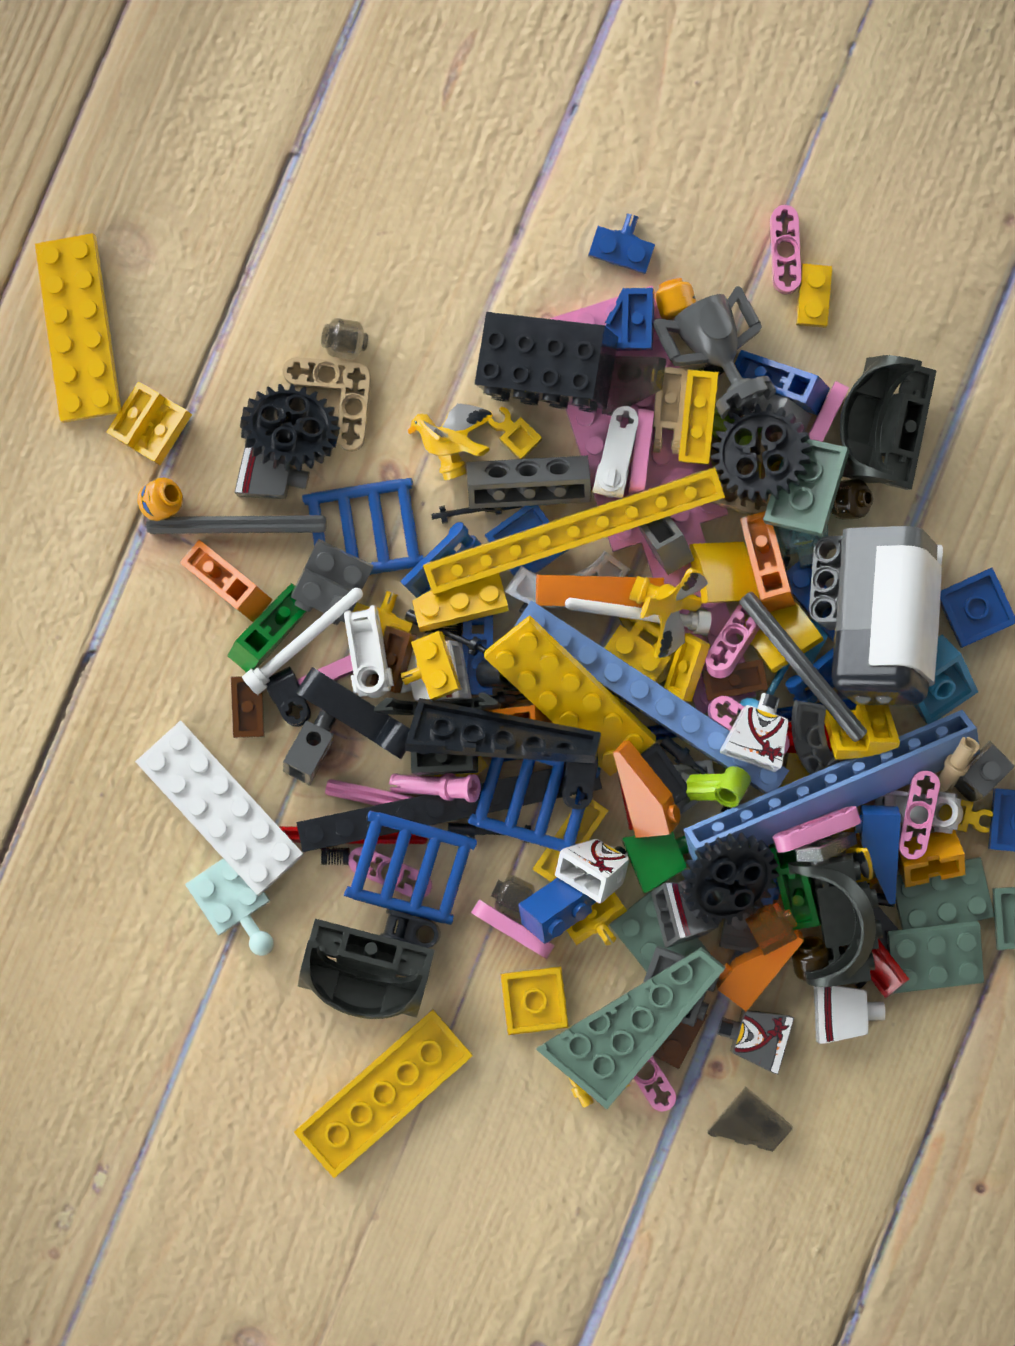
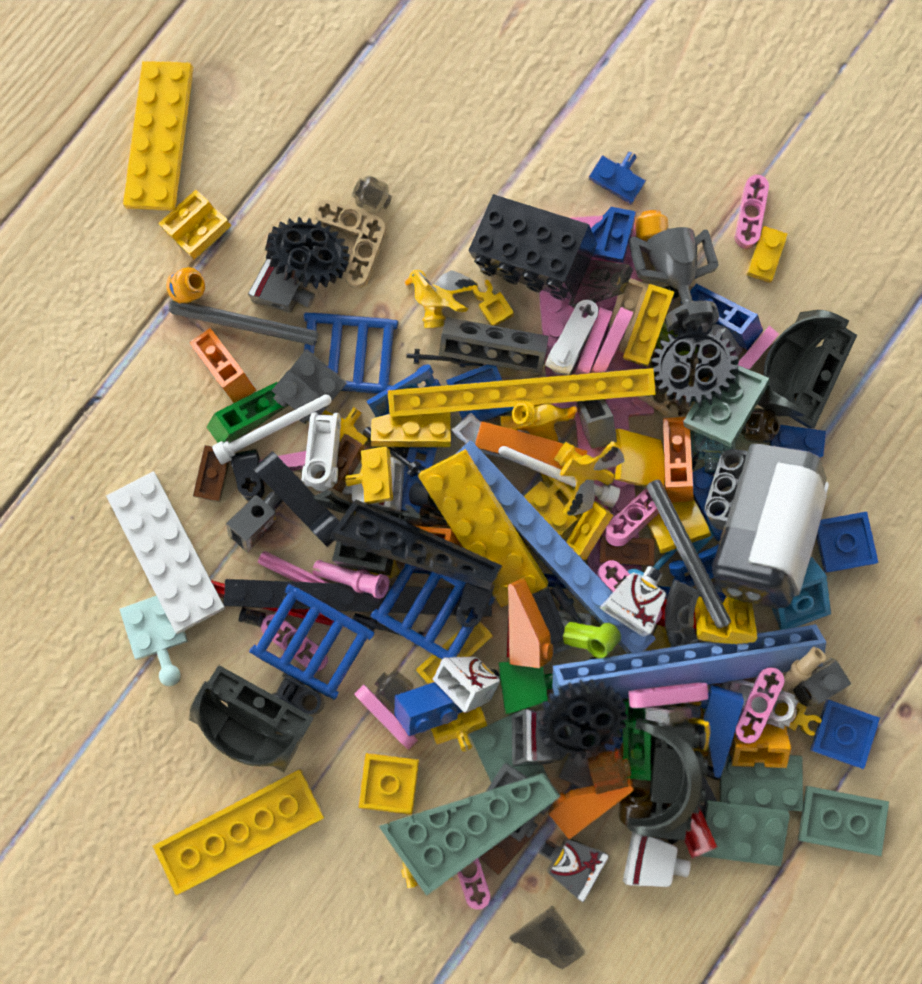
camera: 15 degrees right, 5 degrees down
(600, 556) = (538, 419): none -> yellow animal
(661, 448) = (612, 341): none -> bright pink beam
(899, 507) = (800, 439): none -> blue wing

